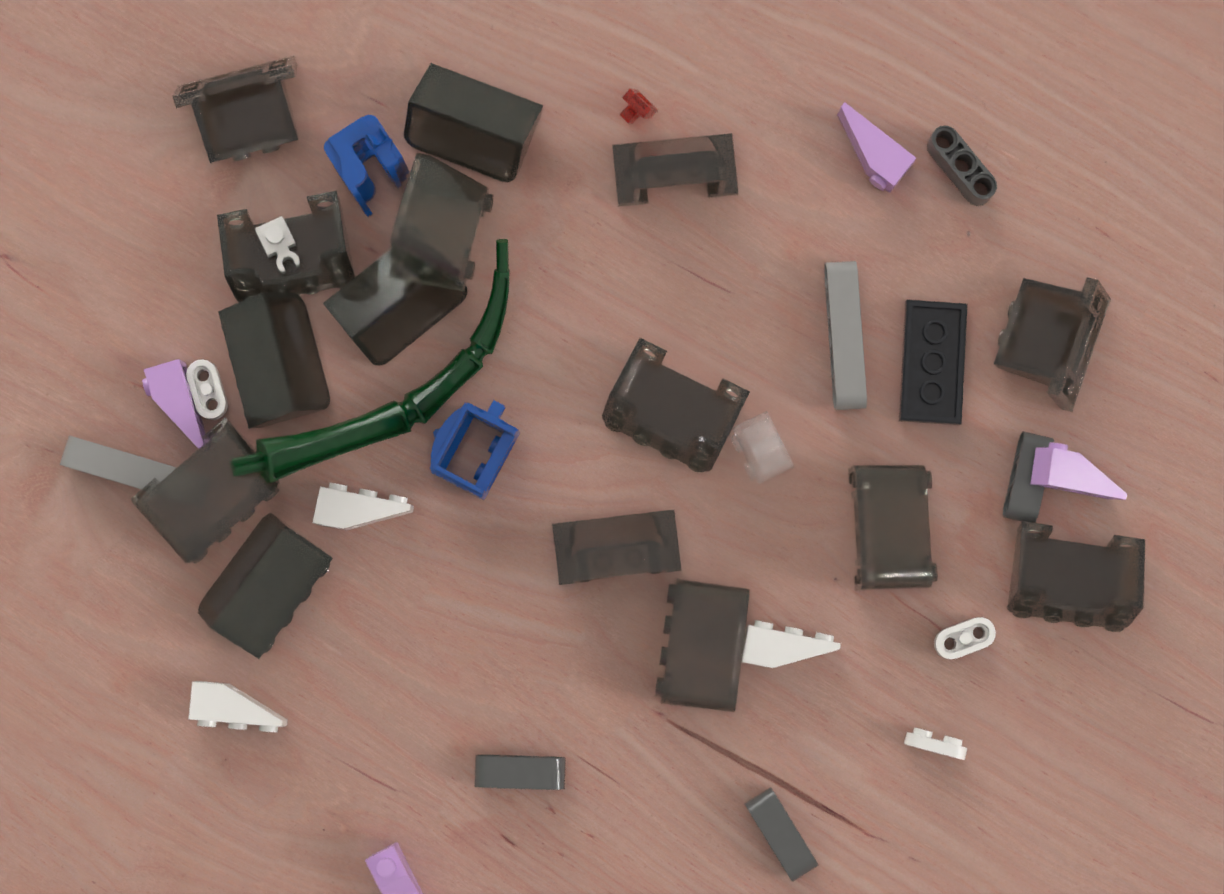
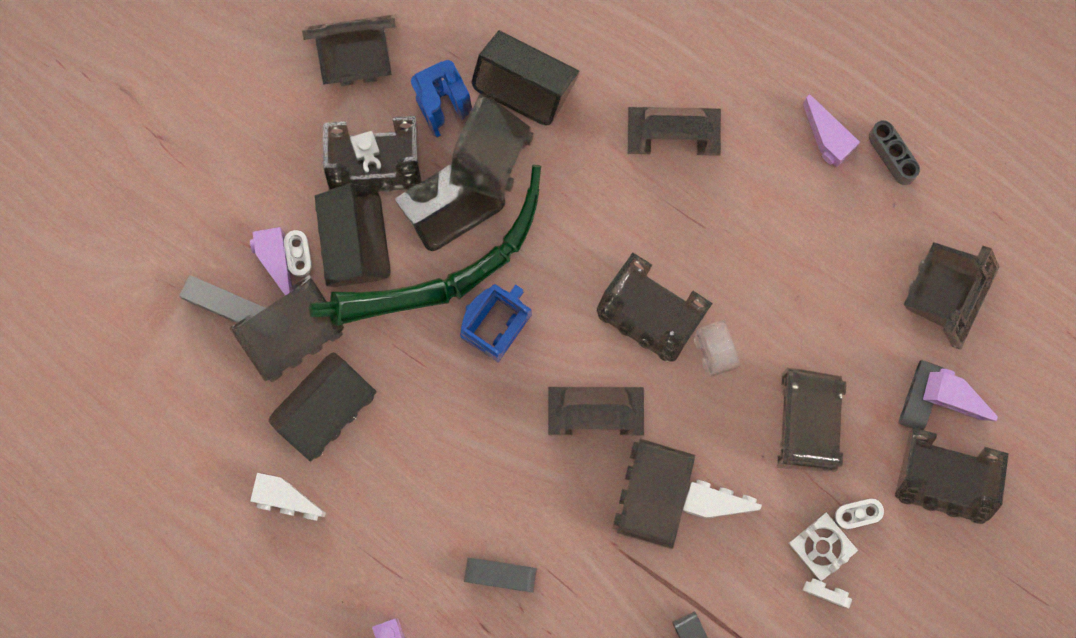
camera: 10 degrees right, 5 degrees down
(350, 510) = (395, 358): white slope -> none
(638, 106) = (651, 80): clear red tile -> none
(845, 335) = (790, 270): light grey beam -> none
(922, 716) = (847, 547): none -> white piece
(933, 362) = (856, 299): black tile -> none

